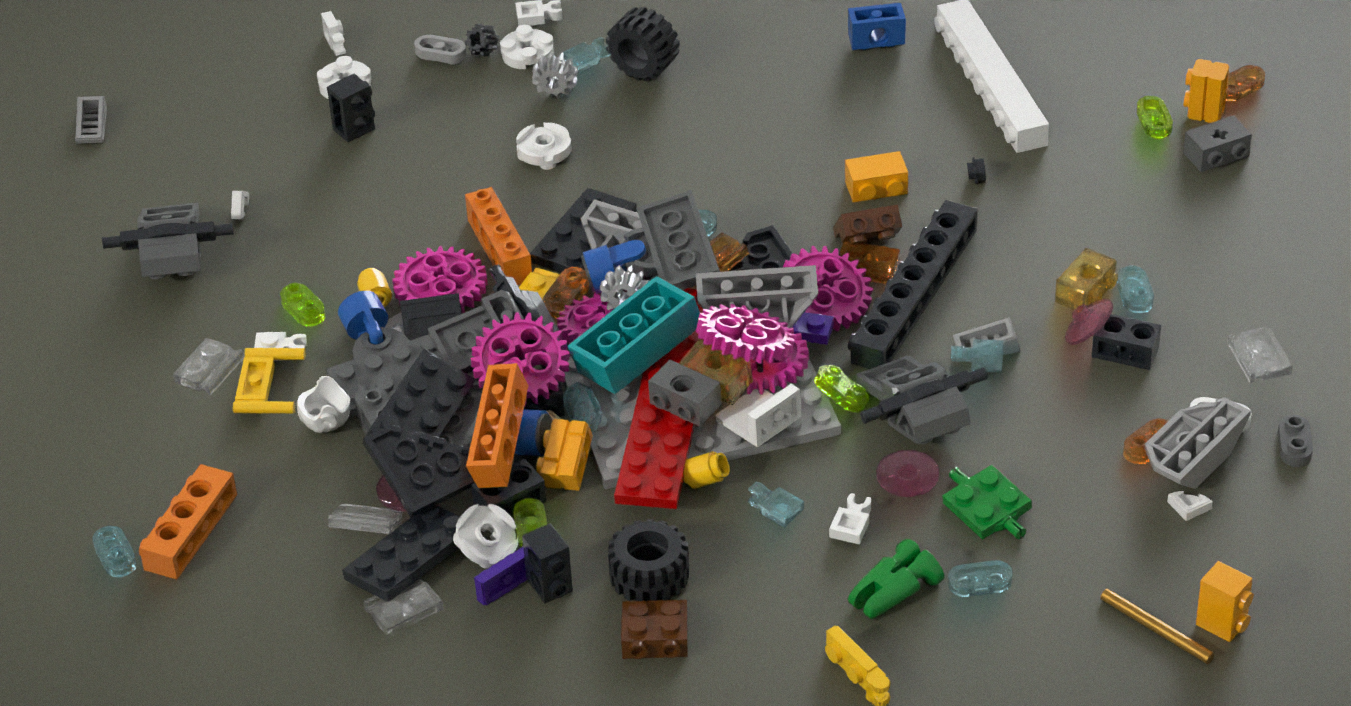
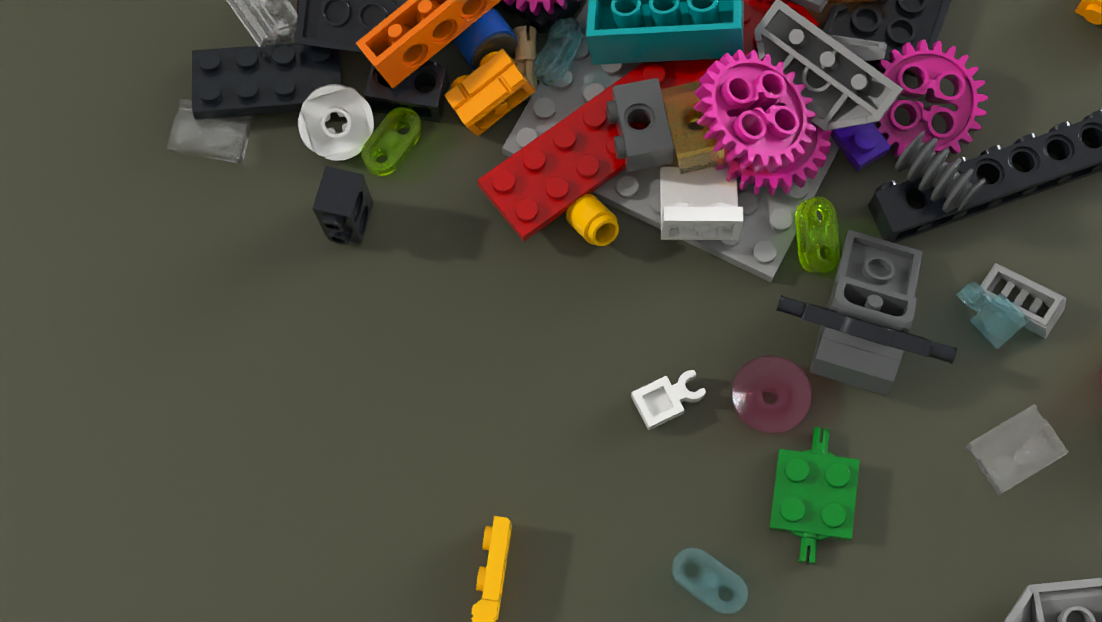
camera: 45 degrees right, 30 degrees up
(500, 577) = (306, 179): dark purple hinge -> none
(648, 561) = (430, 251): black tyre -> none
(654, 629) = (375, 355): reddish brown plate -> none
(777, 505) = (619, 319): clear light blue plate -> none
(870, 223) = (1050, 66): reddish brown plate -> none
(877, 260) = (1012, 100): clear orange plate -> none
(877, 301) = (938, 173): none -> dark grey piece
(895, 579) = (621, 507): green piece -> none
(1066, 403) = (1016, 449): none -> clear plate
(1135, 443) = (1053, 565): clear orange plate -> none

